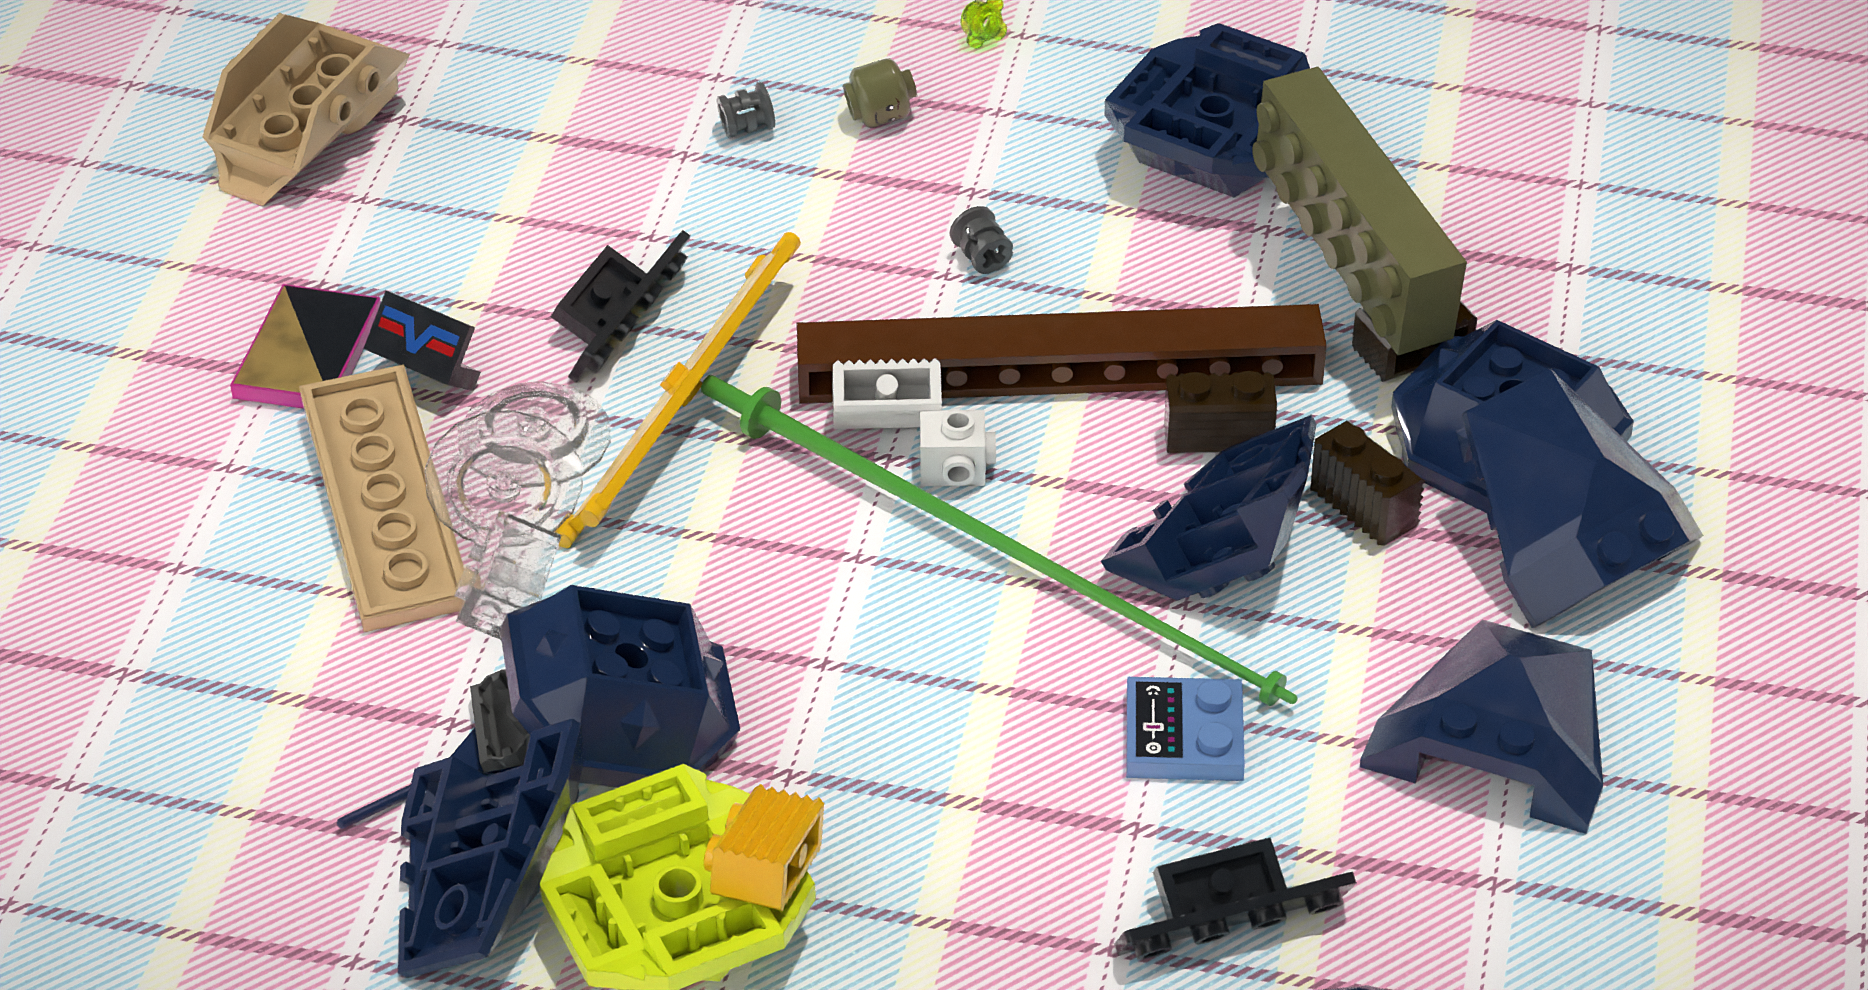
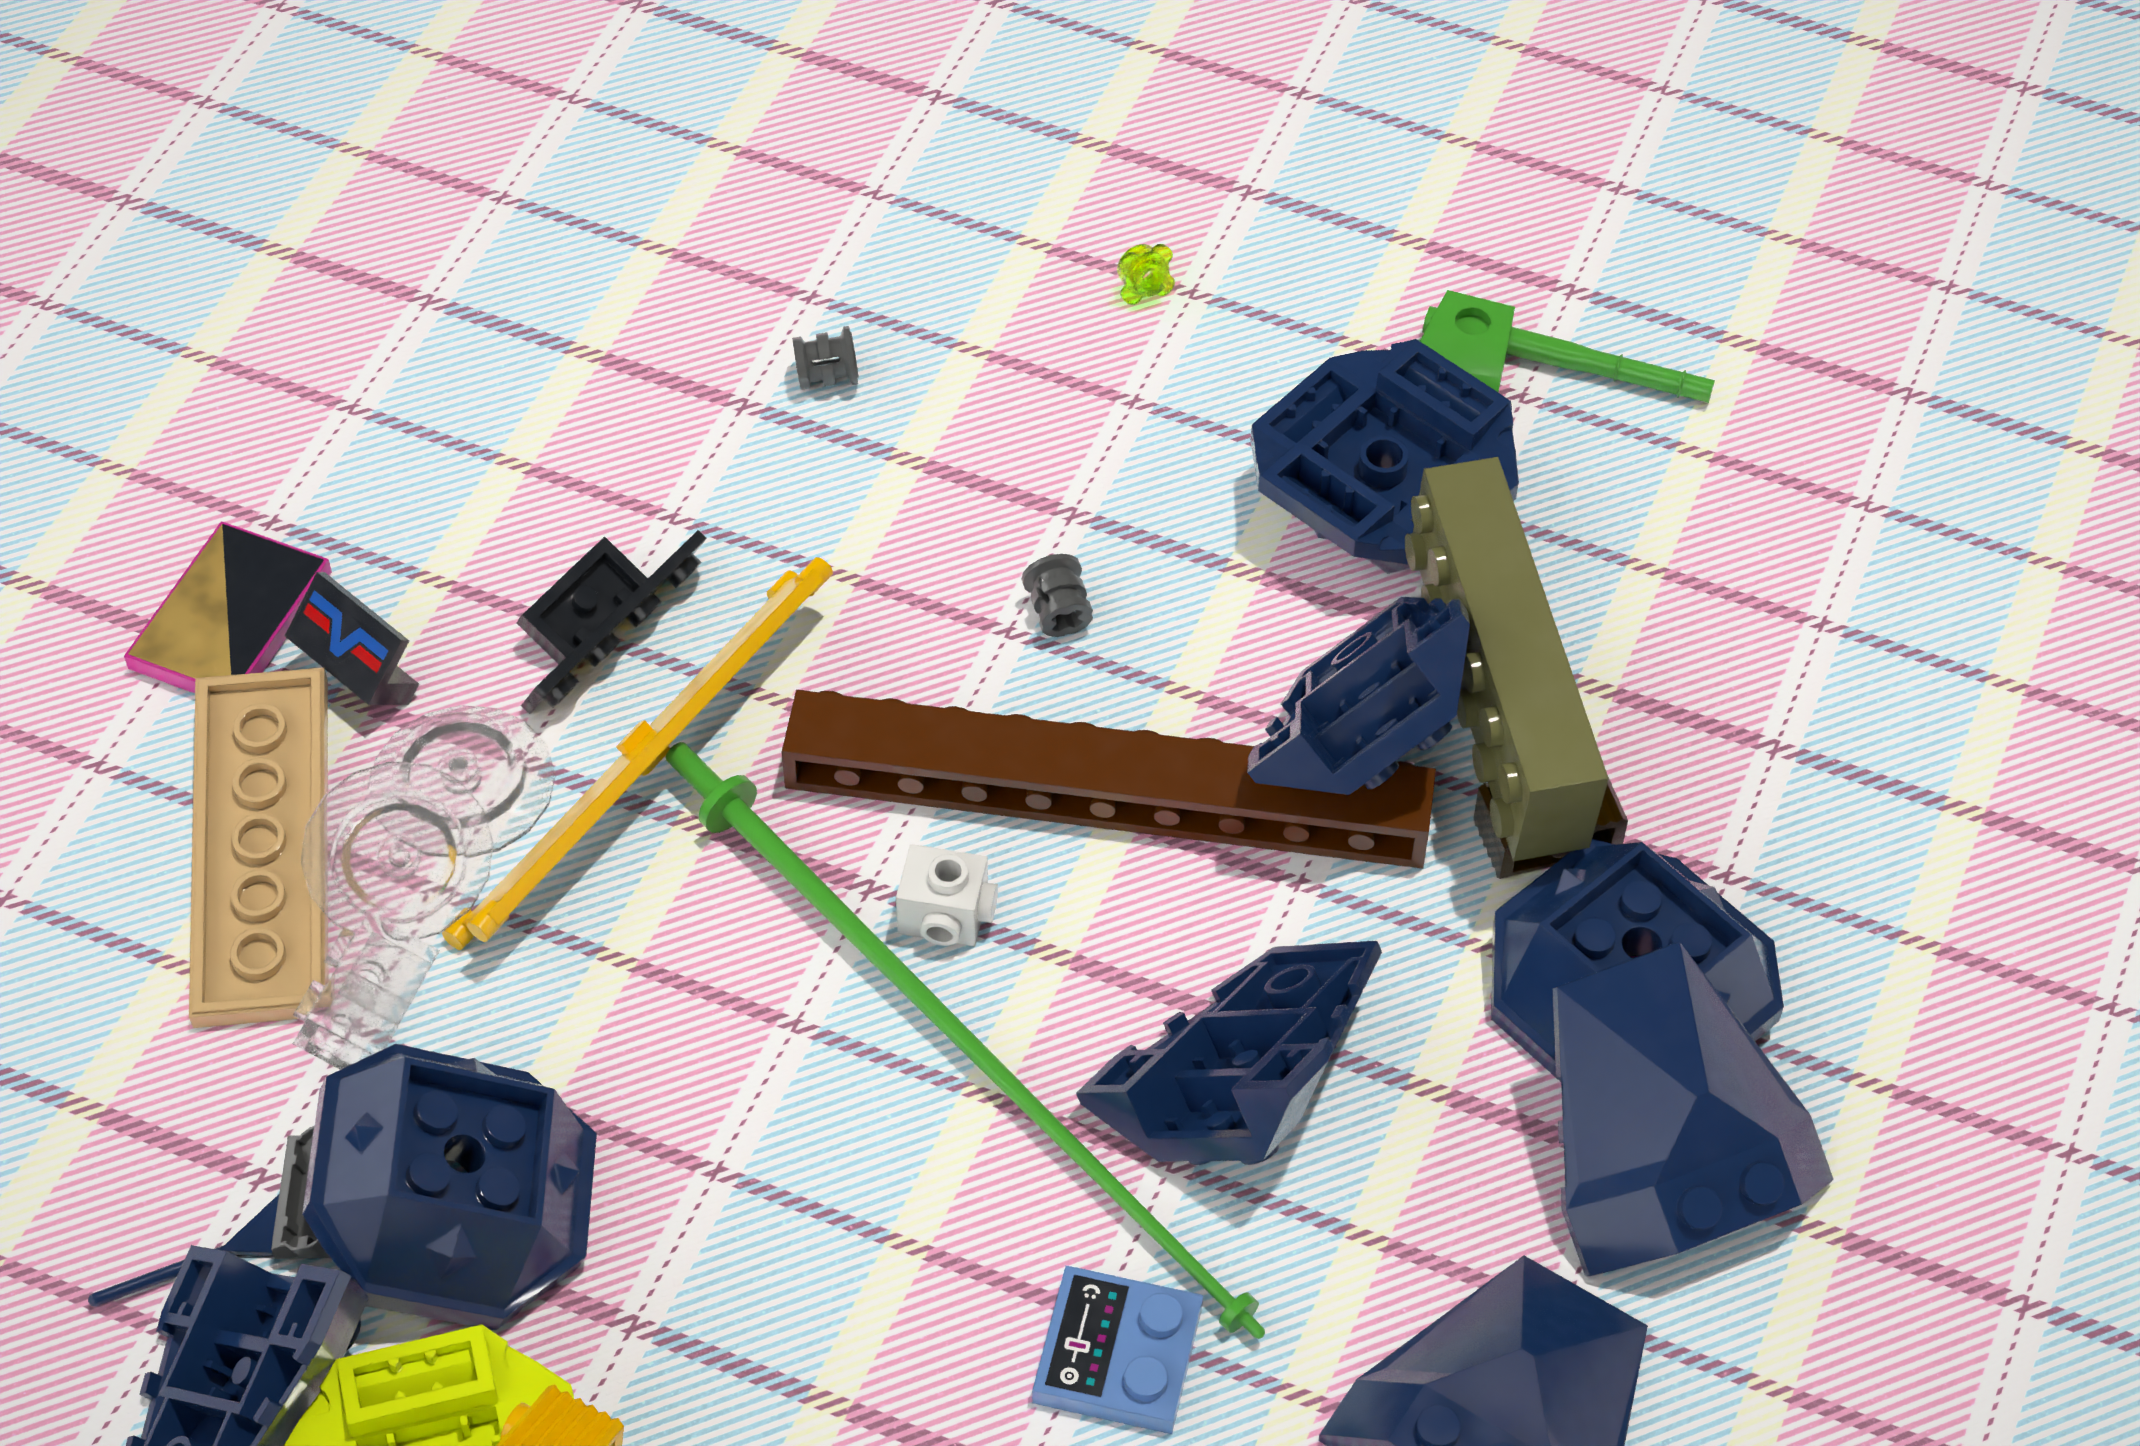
camera: 10 degrees right, 10 degrees up
(291, 99) = (294, 262): tan slope -> none
(879, 92) = (990, 360): olive head -> none
(884, 393) = (876, 810): white brick -> none
(1217, 410) = (1274, 900): dark brown brick -> none
(1266, 249) = (1369, 701): none -> dark blue wedge
(1268, 23) = (1480, 335): none -> bright green piece
(1366, 483) = (1429, 1036): dark brown brick -> none

